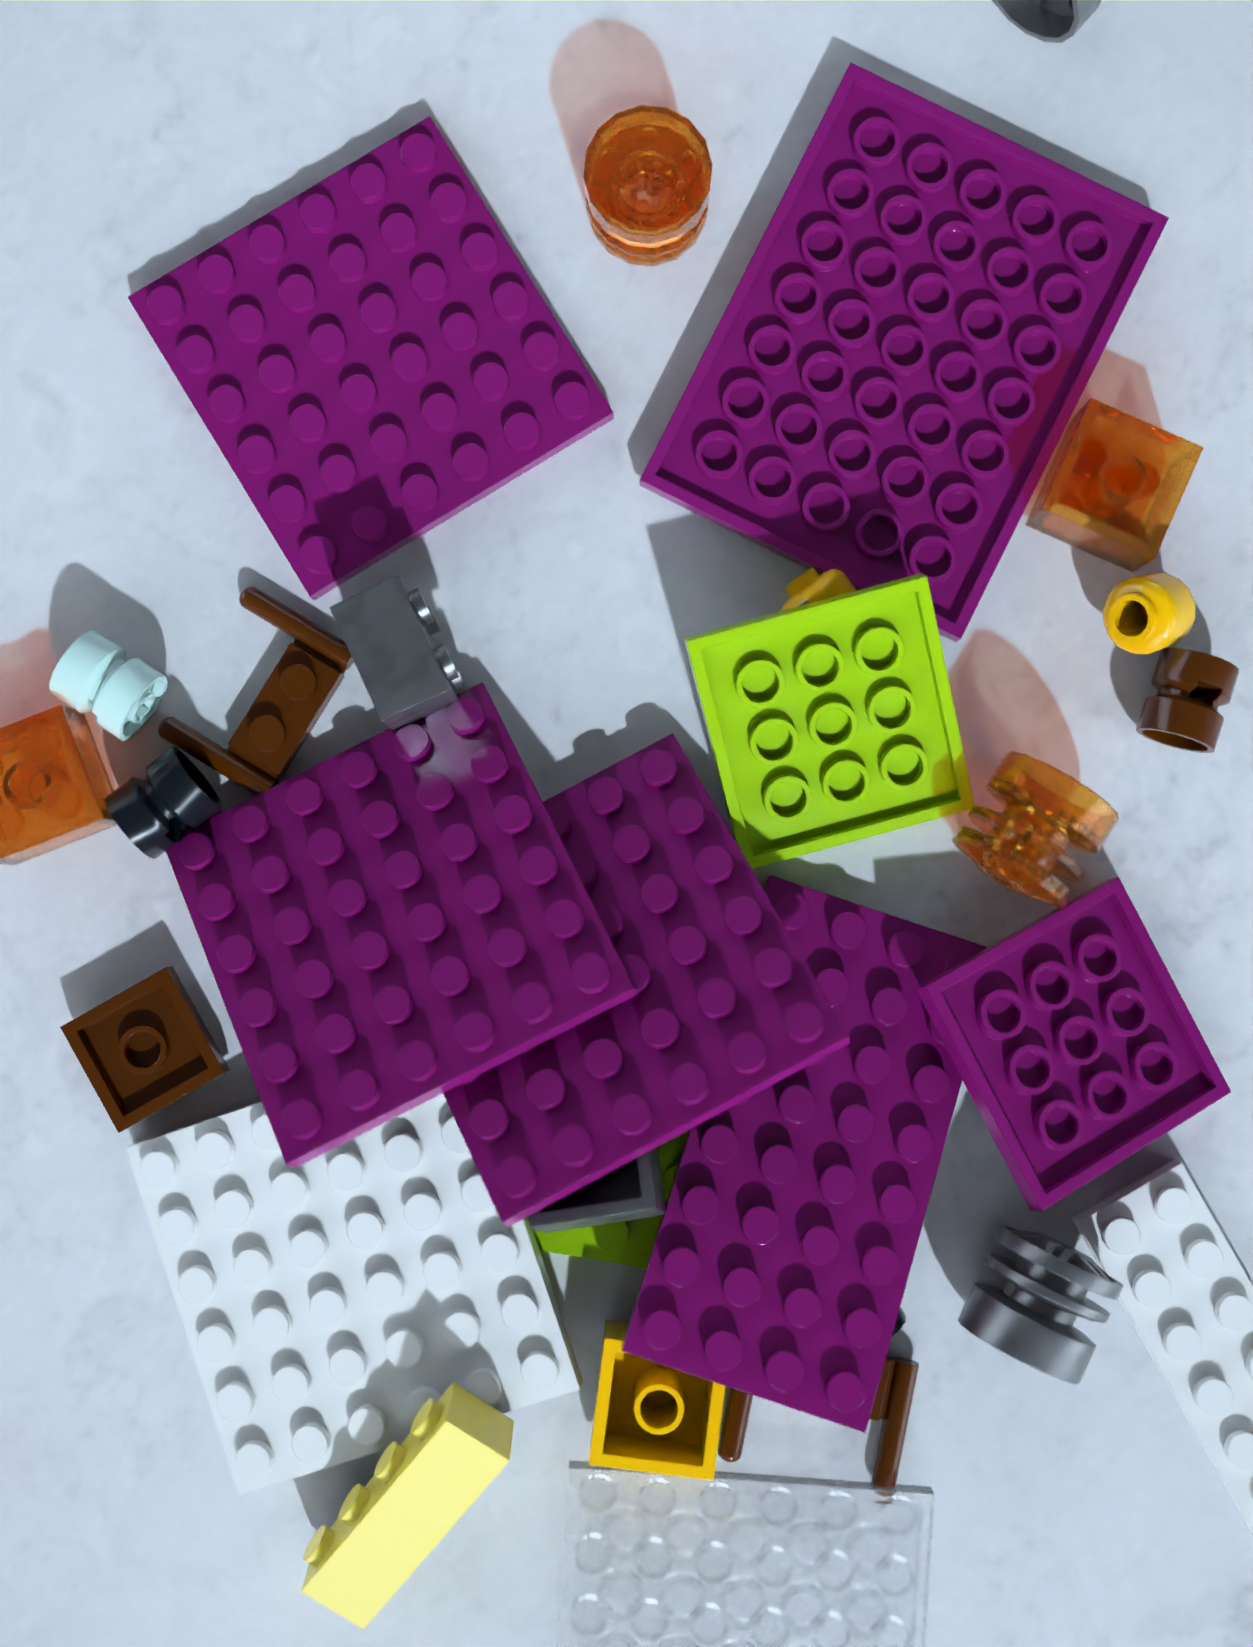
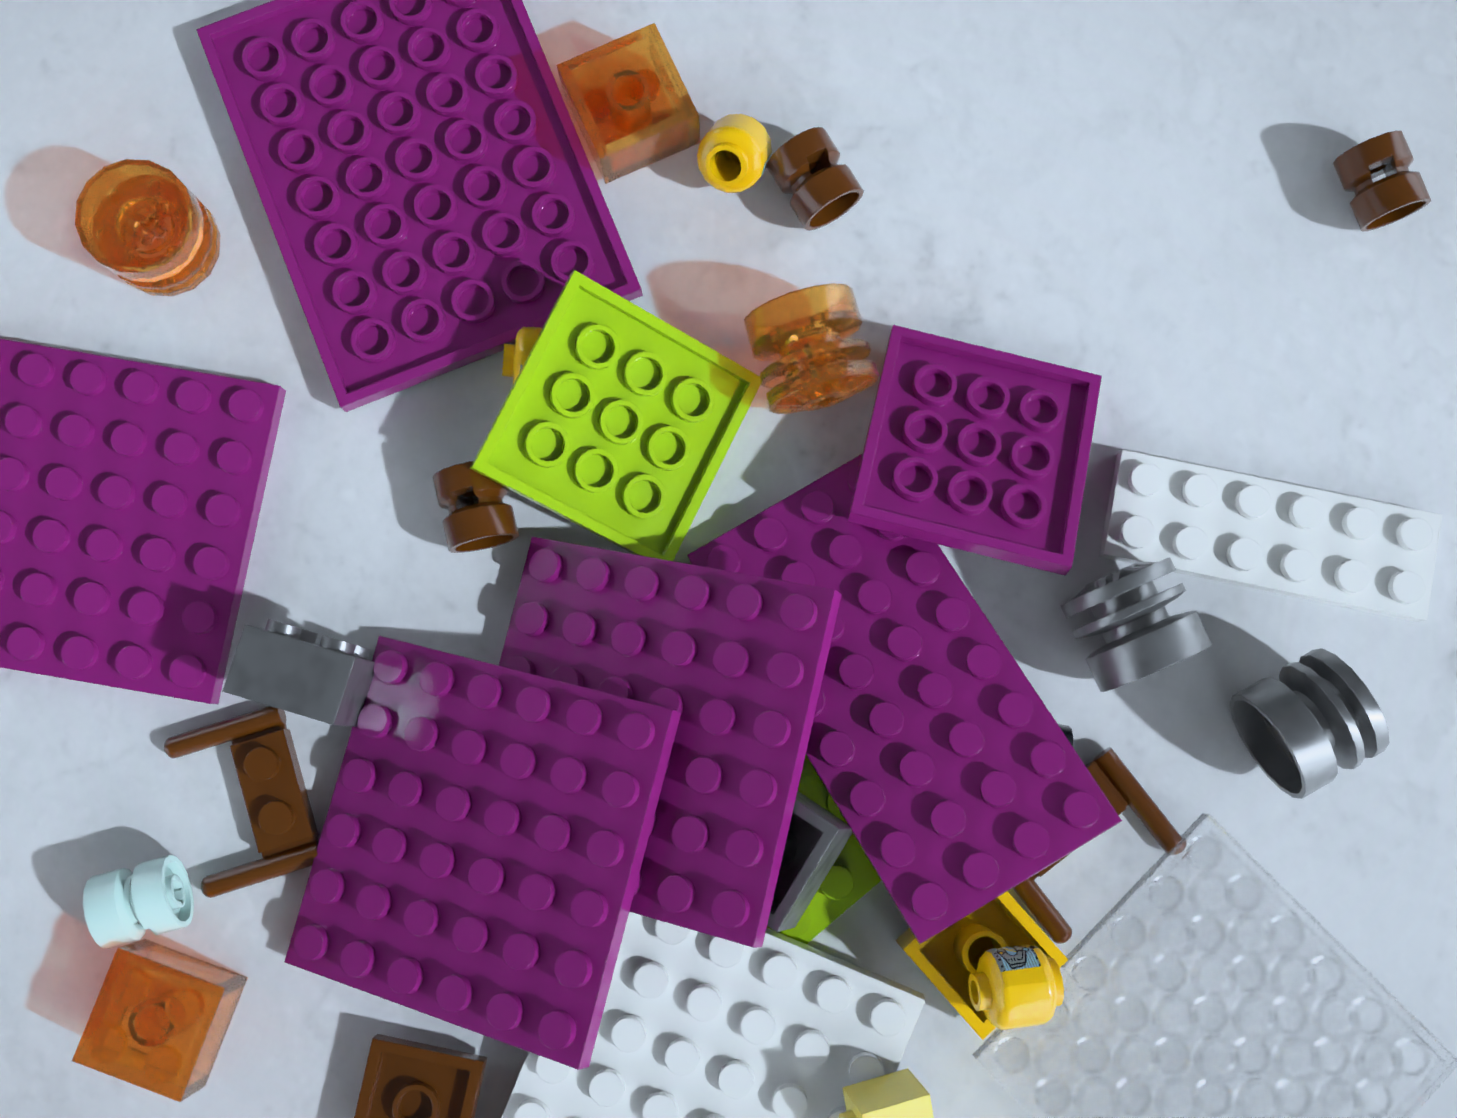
camera: 50 degrees left, 5 degrees down
(159, 806) = (256, 936): black wheel -> none
(639, 679) = (473, 525): none -> reddish brown wheel
(655, 1459) = (1016, 986): none -> yellow head
(1085, 1518) = (1309, 722): none -> flat silver wheel

